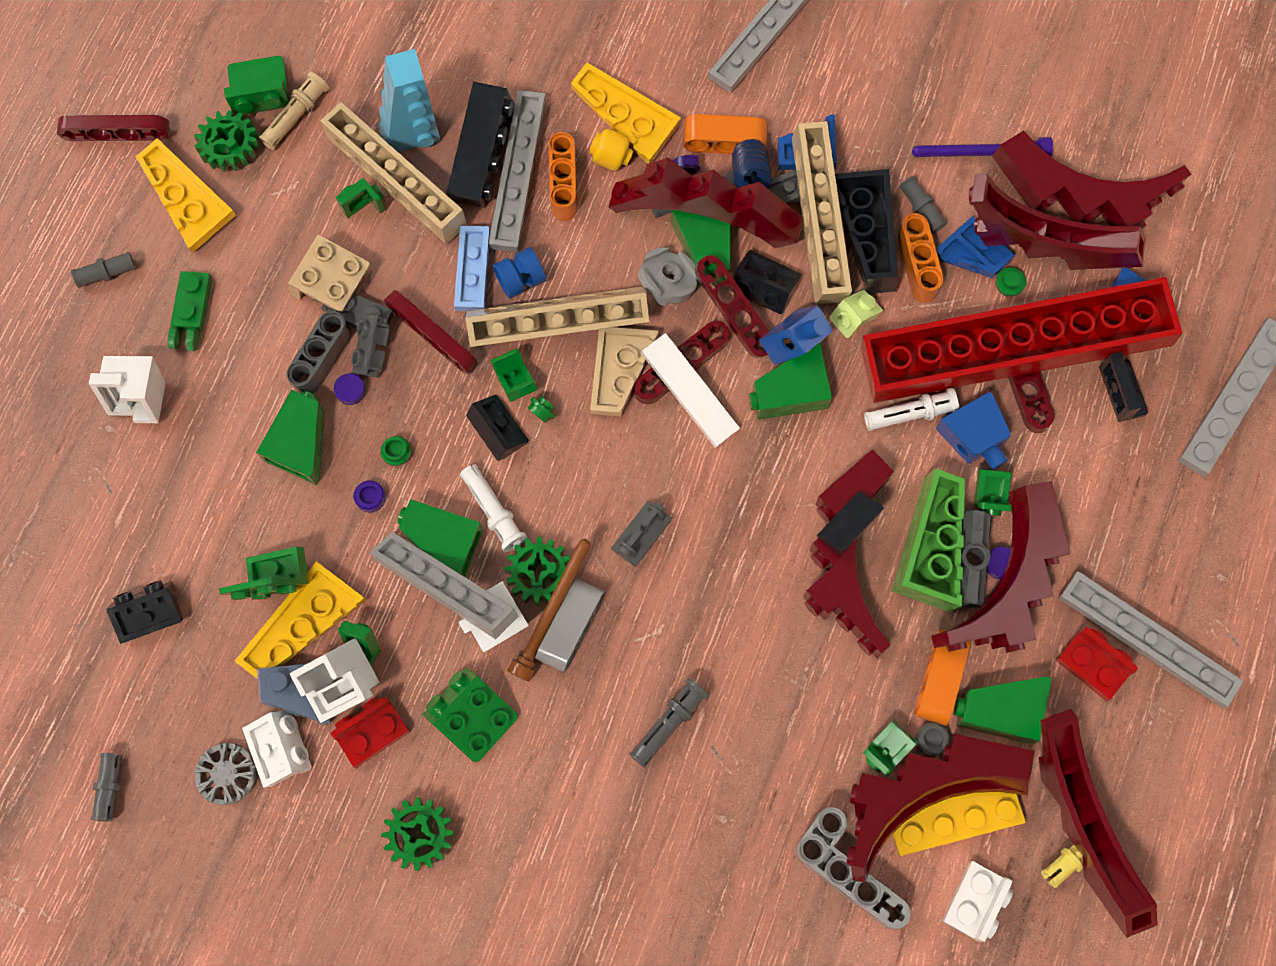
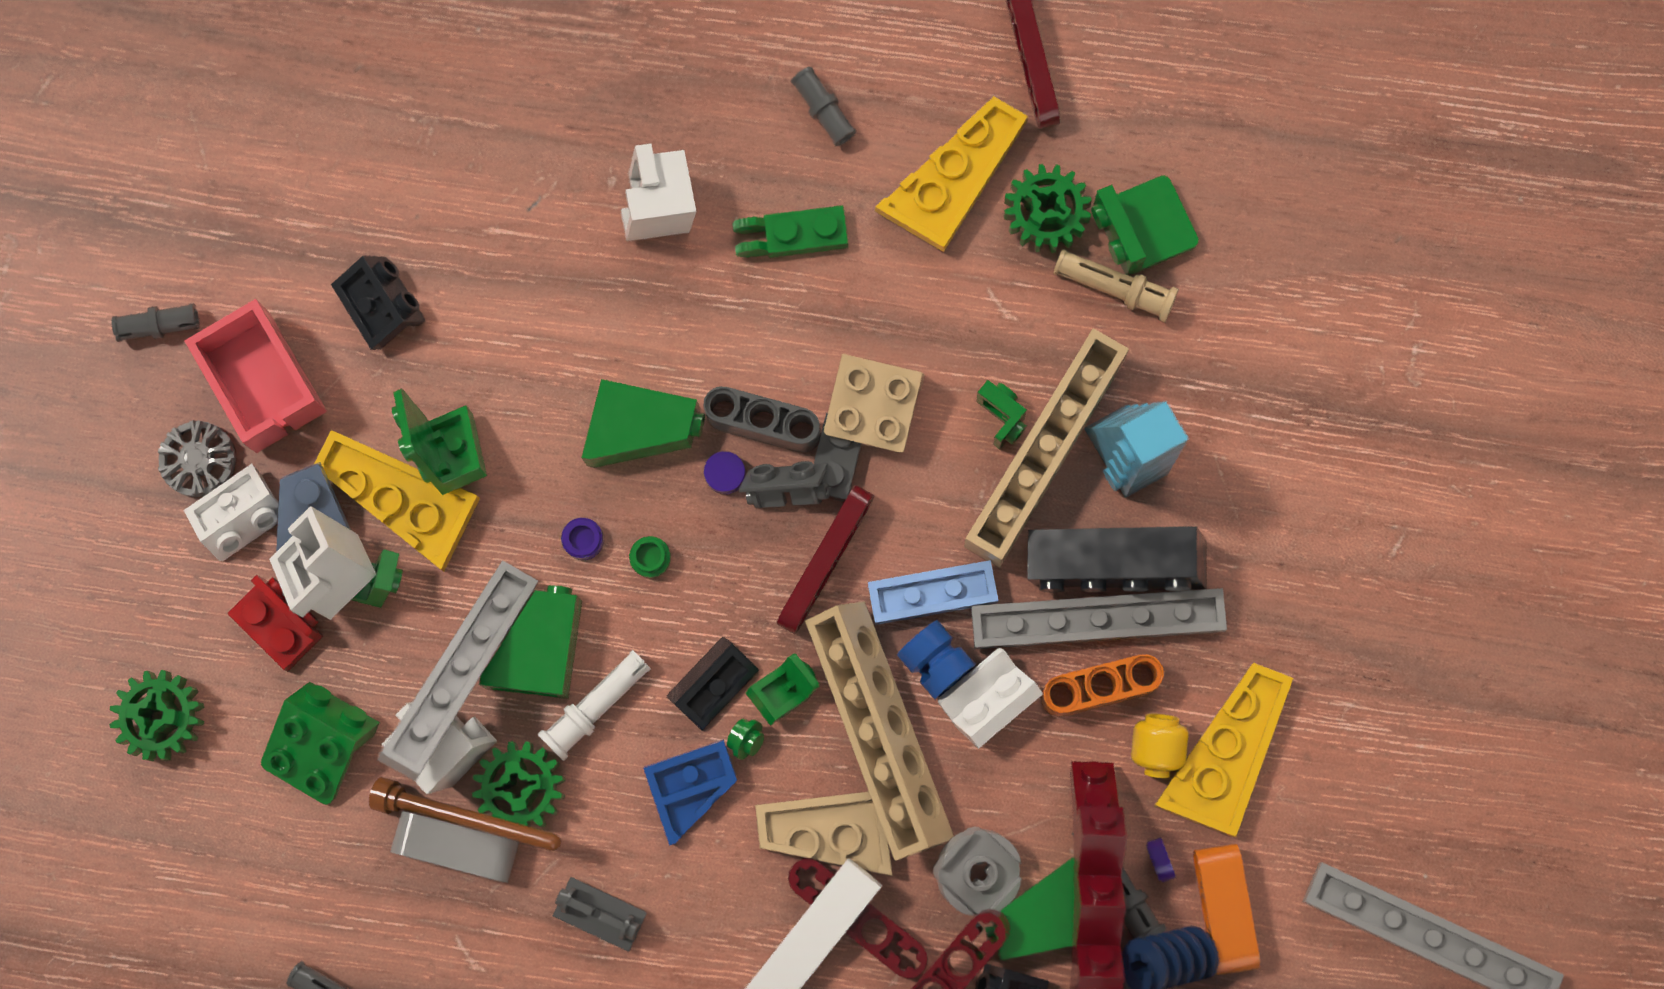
camera: 85 degrees right, 5 degrees up
(173, 709) = (255, 376): none -> coral piece
(555, 244) = (989, 697): none -> white bracket
(565, 454) = (689, 785): none -> blue wing

